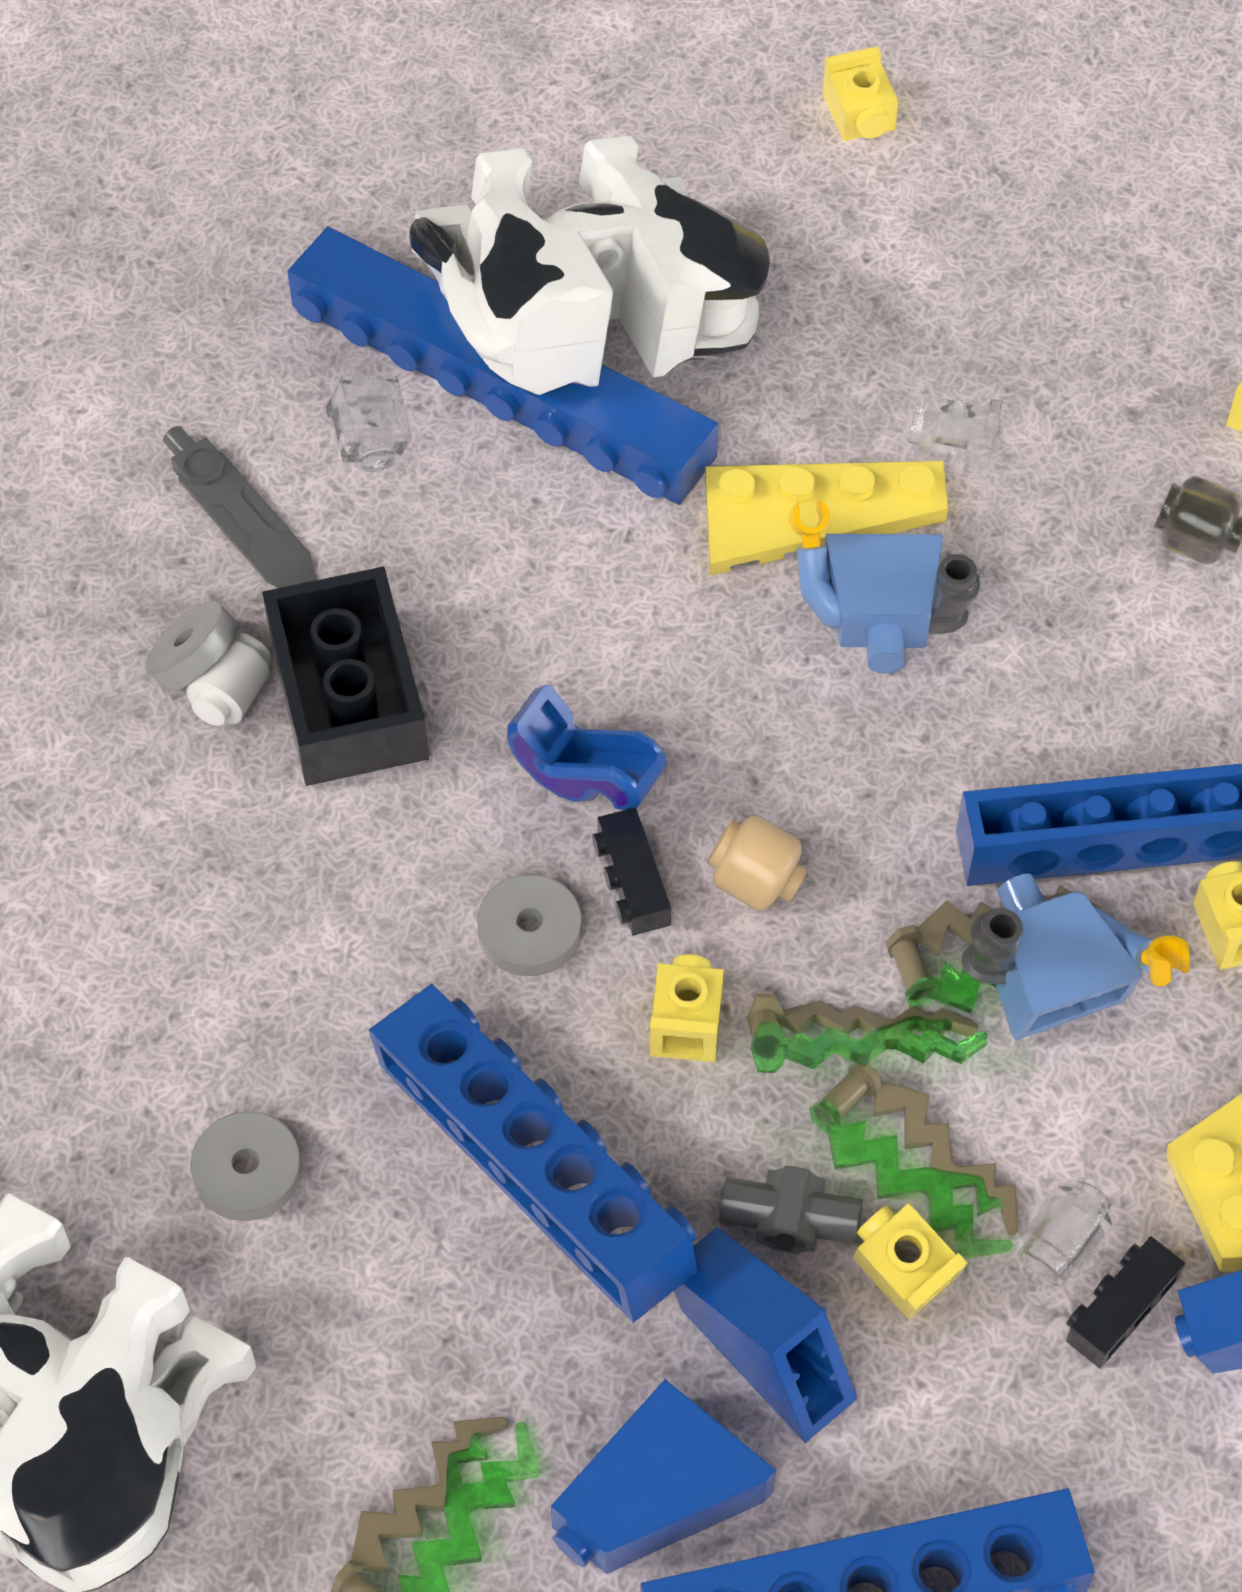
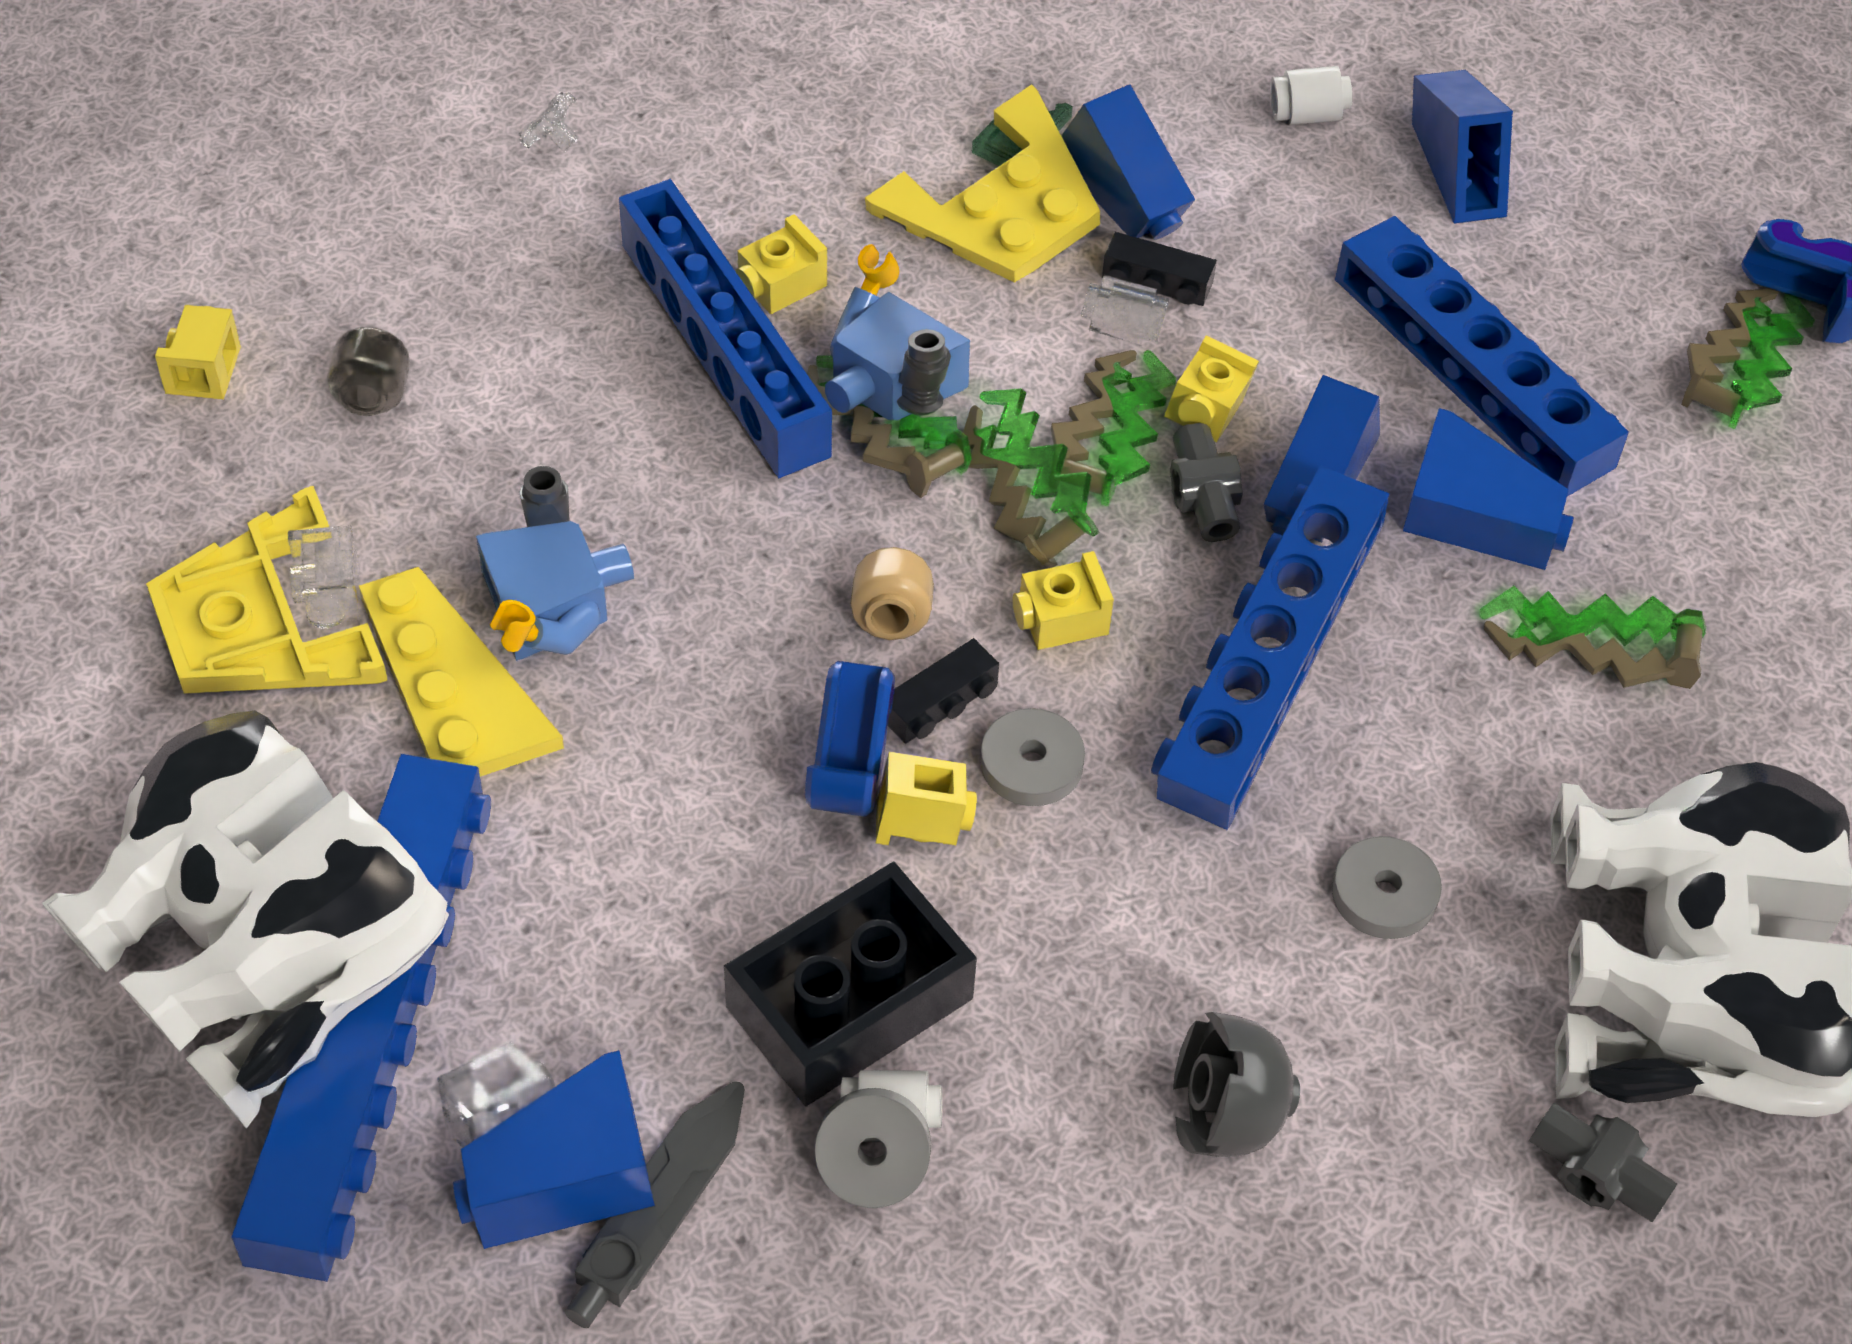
camera: 115 degrees left, 5 degrees down
(97, 924) = (1242, 1078): none -> dark grey cylinder
(297, 451) = (557, 1160): none -> blue slope
(522, 788) = (923, 800): none -> light yellow brick
(952, 358) = (234, 626): none -> light yellow wing

